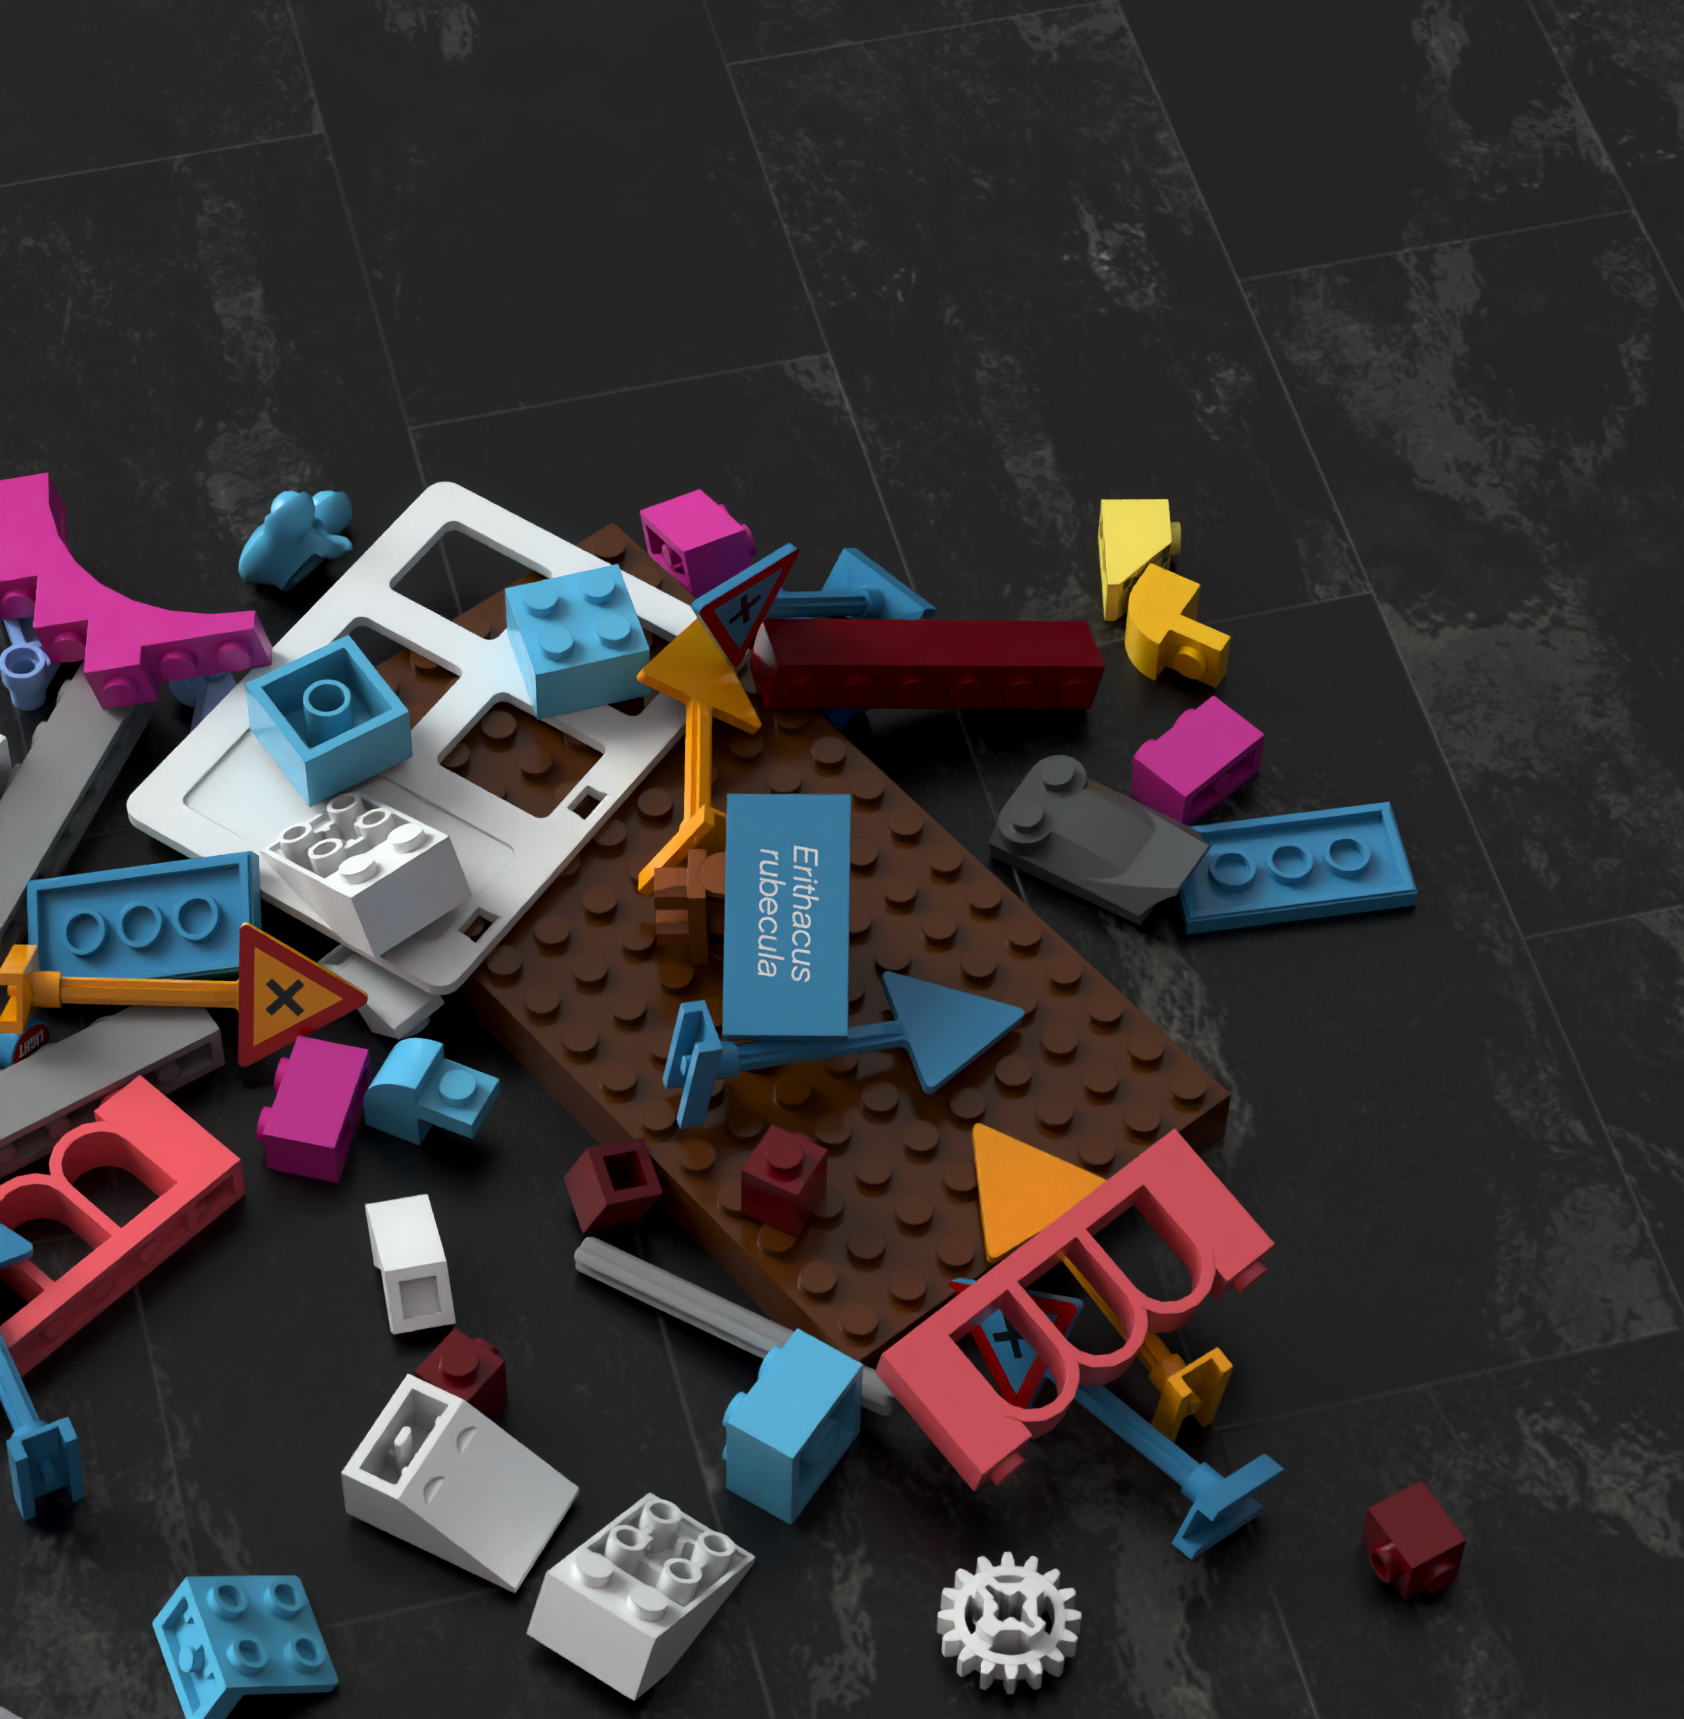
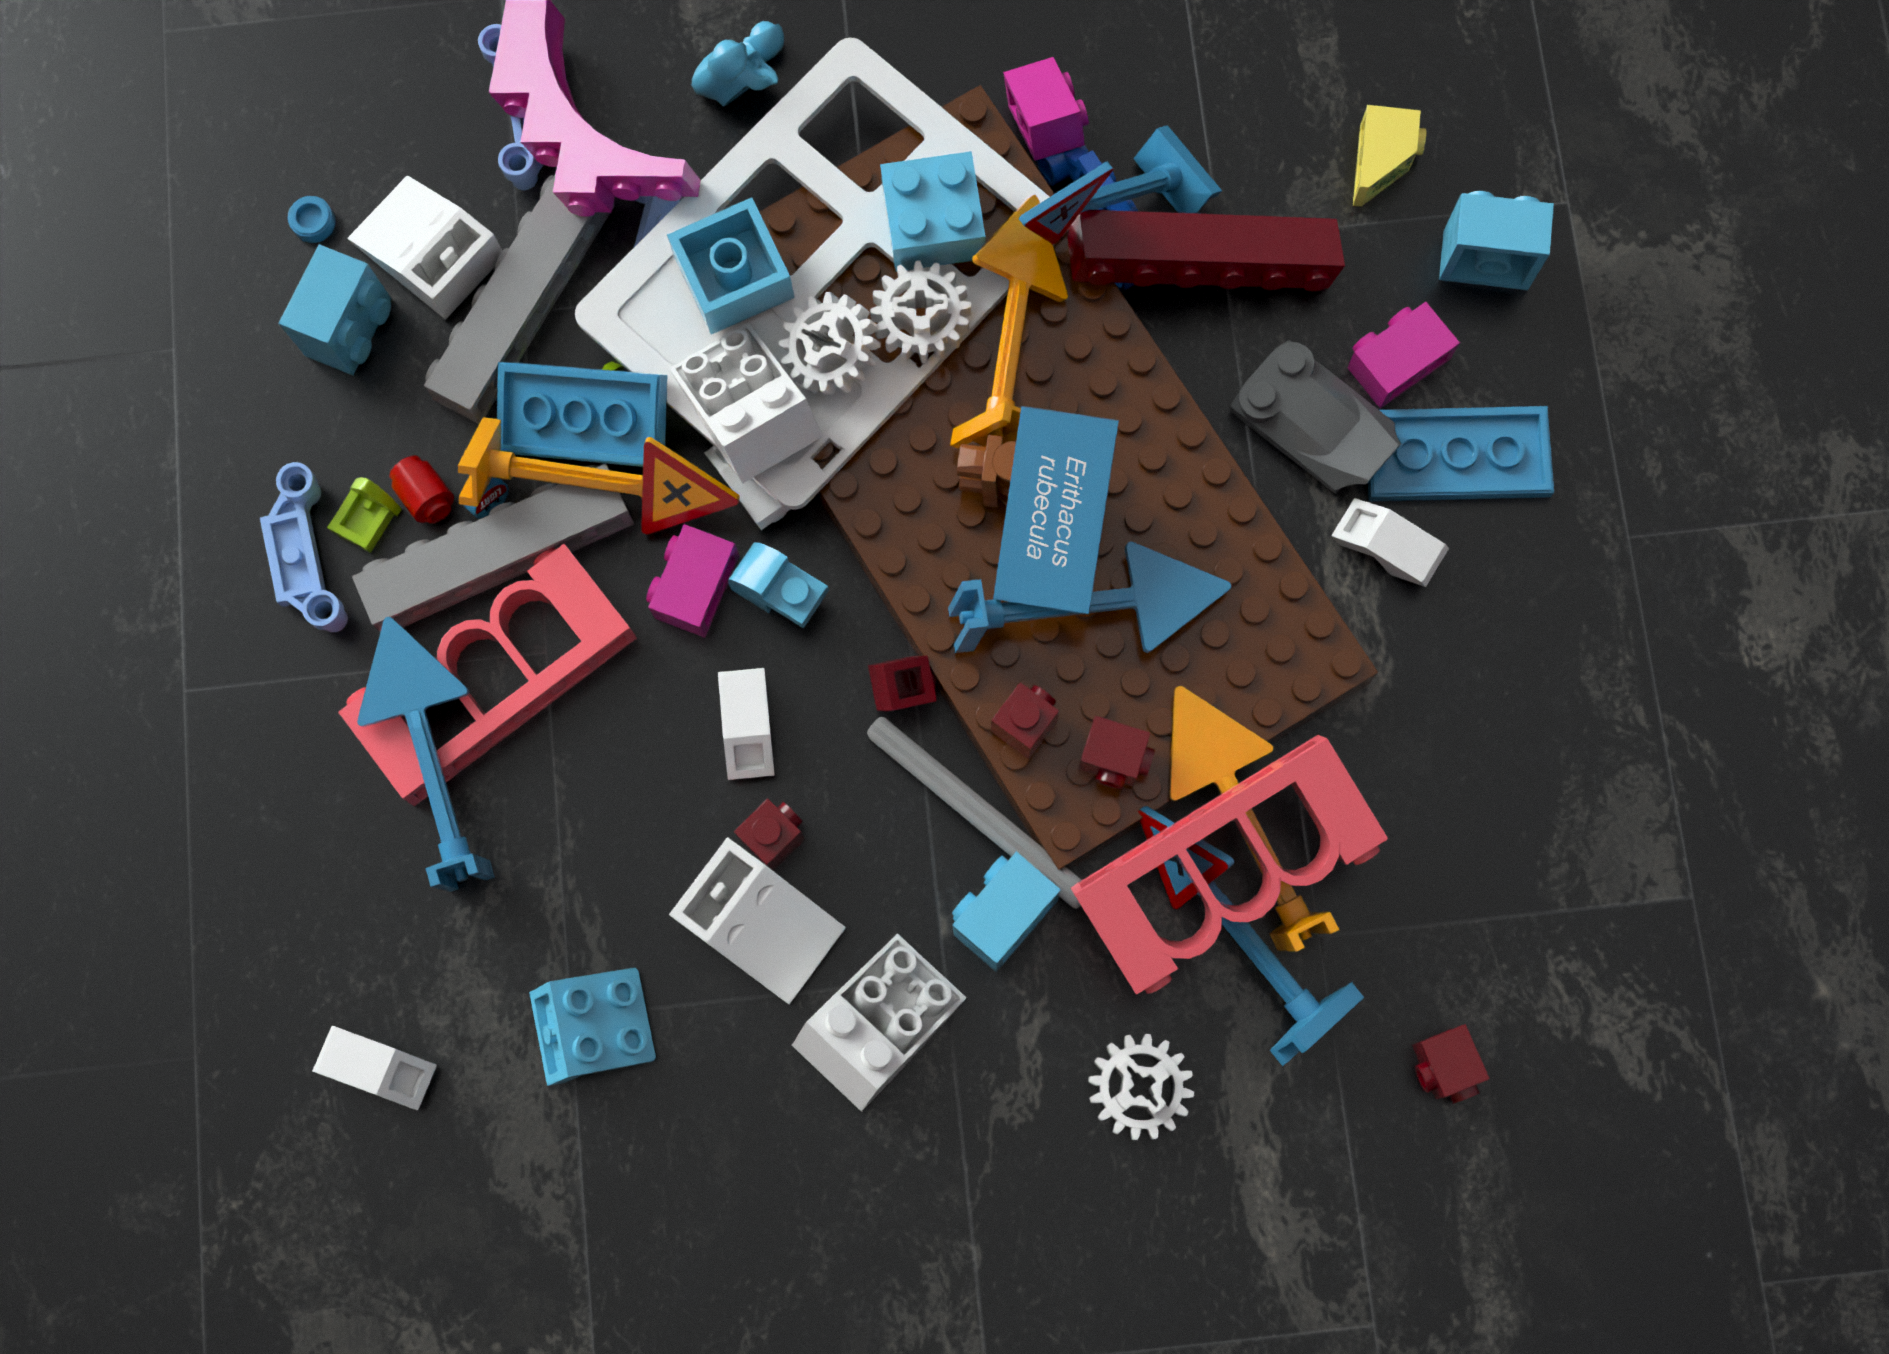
camera: 15 degrees right, 25 degrees up
(466, 790) = (824, 365): none -> white gear
(578, 749) = (942, 310): none -> white gear
(908, 1204) = (1116, 753): none -> dark red brick
(1166, 631) = (1394, 230): yellow brick -> none
(1231, 964) = (1392, 540): none -> white slope
(1288, 624) = (1496, 240): none -> medium azure brick

